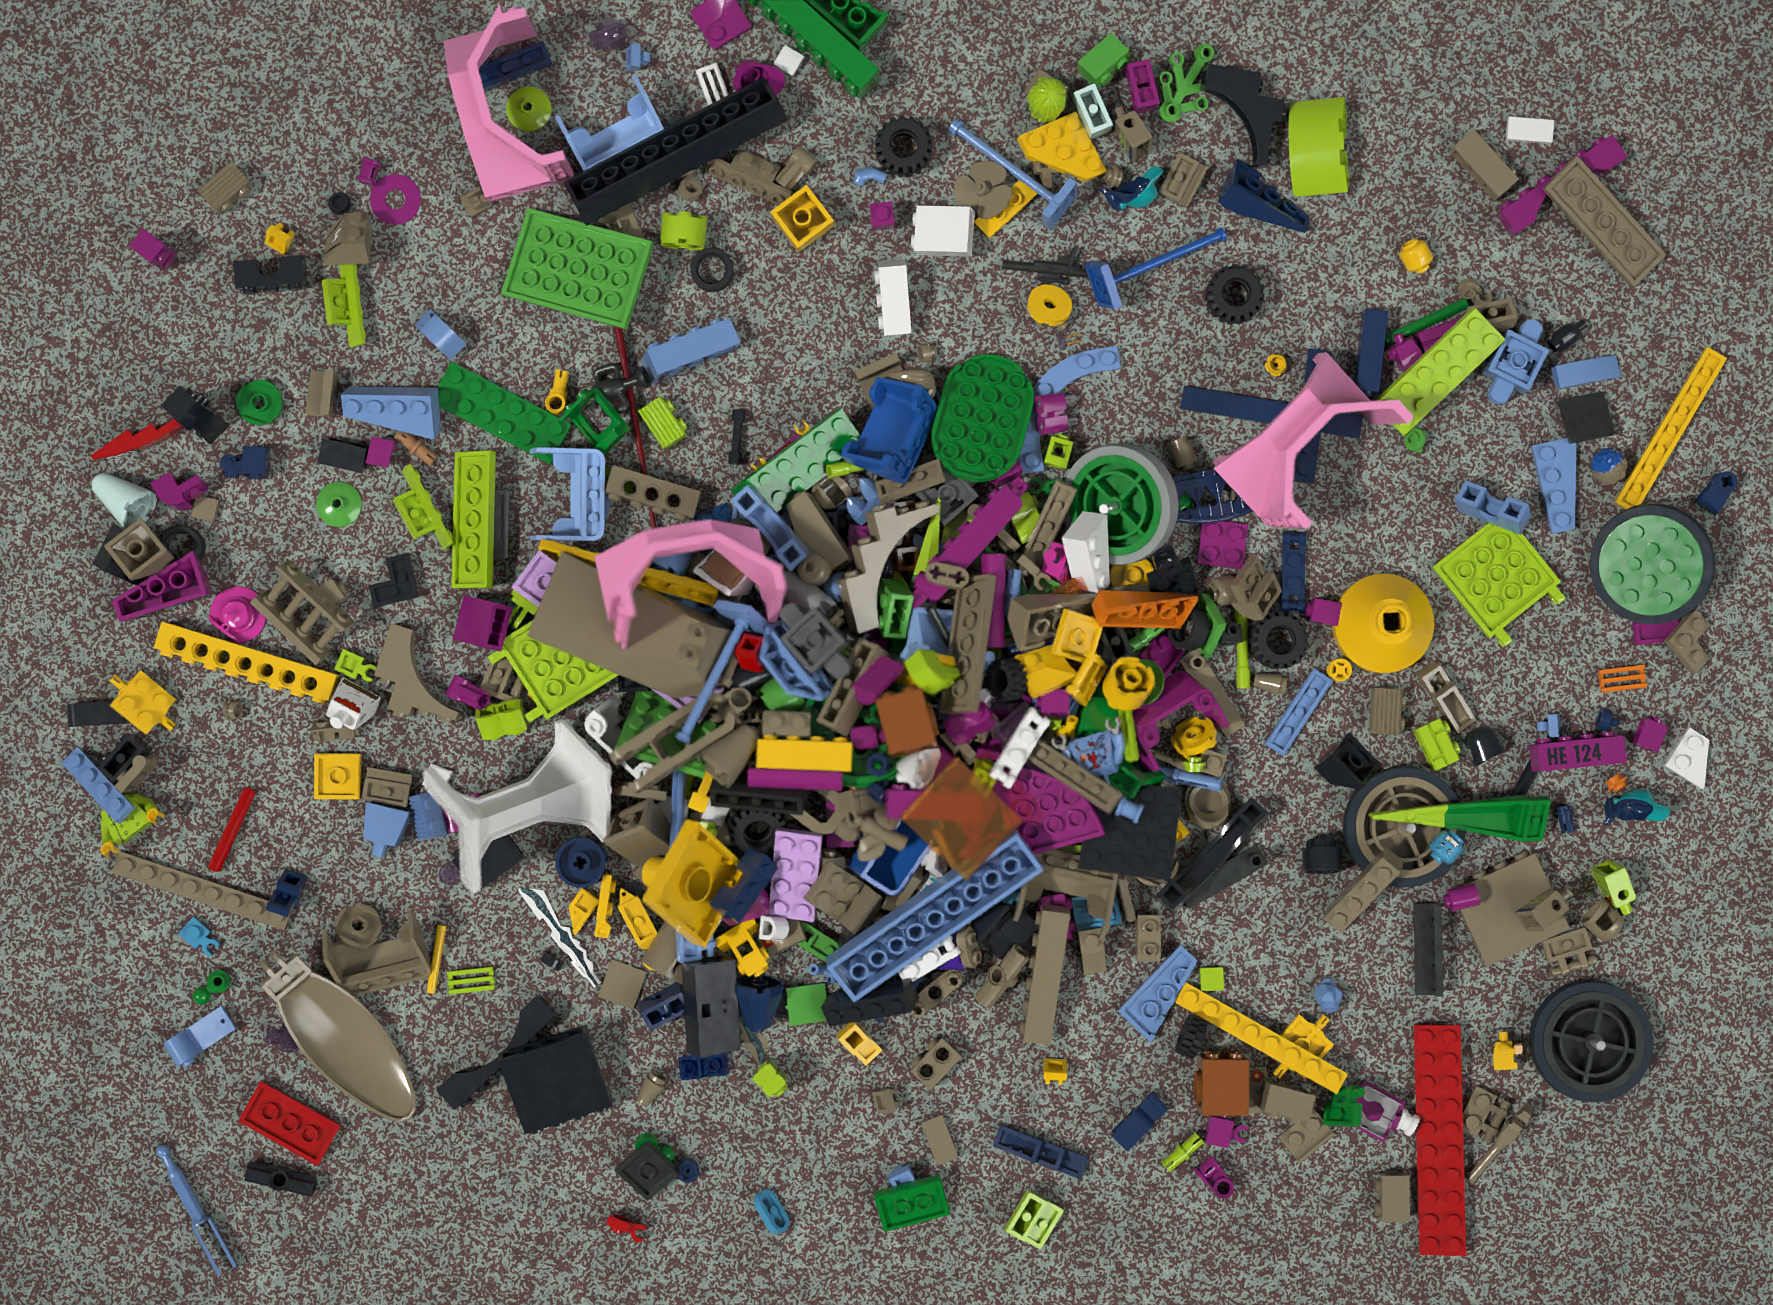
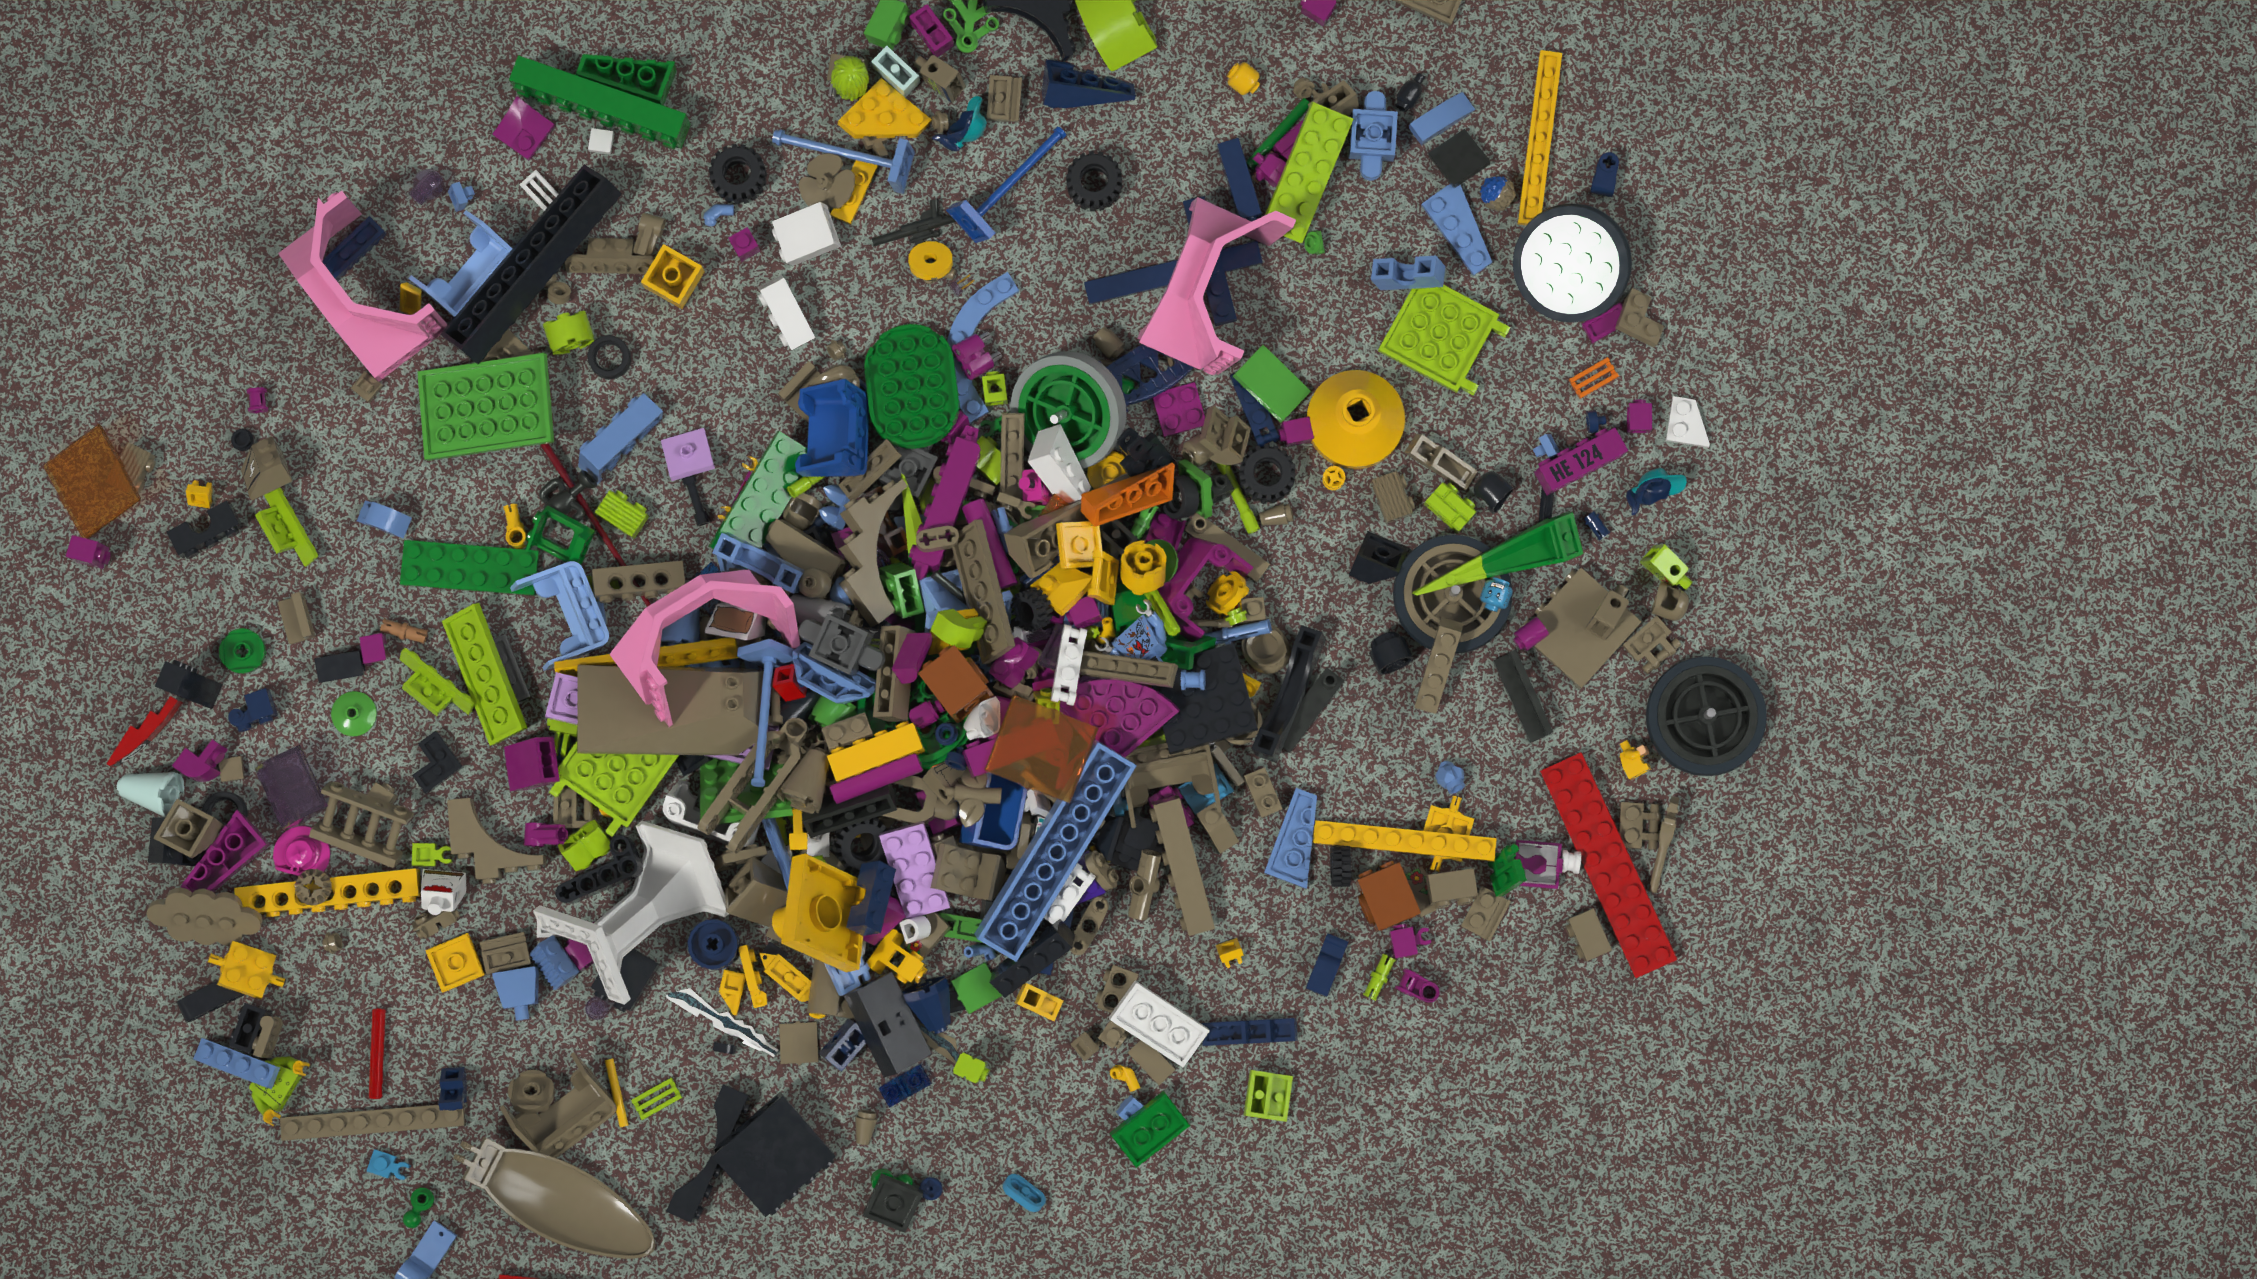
camera: 20 degrees left, 5 degrees down
(123, 637) = (204, 916): none -> dark tan plate
(183, 184) = (92, 482): none -> clear orange piece
(244, 650) = (318, 896): none -> dark tan gear
(251, 550) = (291, 787): none -> clear purple slope
(275, 1036) = (505, 1225): clear purple plate -> none
(397, 408) = (372, 602): medium blue wedge -> none
(400, 215) = (307, 409): magenta gear -> none
(501, 752) = (598, 875): none -> black beam
(536, 116) = (385, 292): lime dish -> none
(548, 136) = (410, 298): none -> yellow tile
(619, 1224) = (888, 1264): red plate -> none
(747, 392) = (687, 454): none -> lavender plate
(753, 70) = (571, 163): magenta piece -> none
(911, 1142) = (1125, 1074): none -> yellow arm
(916, 1101) = (1113, 1035): none -> dark tan brick
(961, 1111) = (1159, 1024): none -> white plate
(1211, 978) = (1338, 807): lime tile -> none
(1280, 360) = (1159, 222): yellow plate -> none
(1298, 712) = (1313, 532): medium blue tile -> none
(1319, 557) = (1271, 383): none -> bright green tile
(1616, 783) = (1629, 473): orange plate -> none

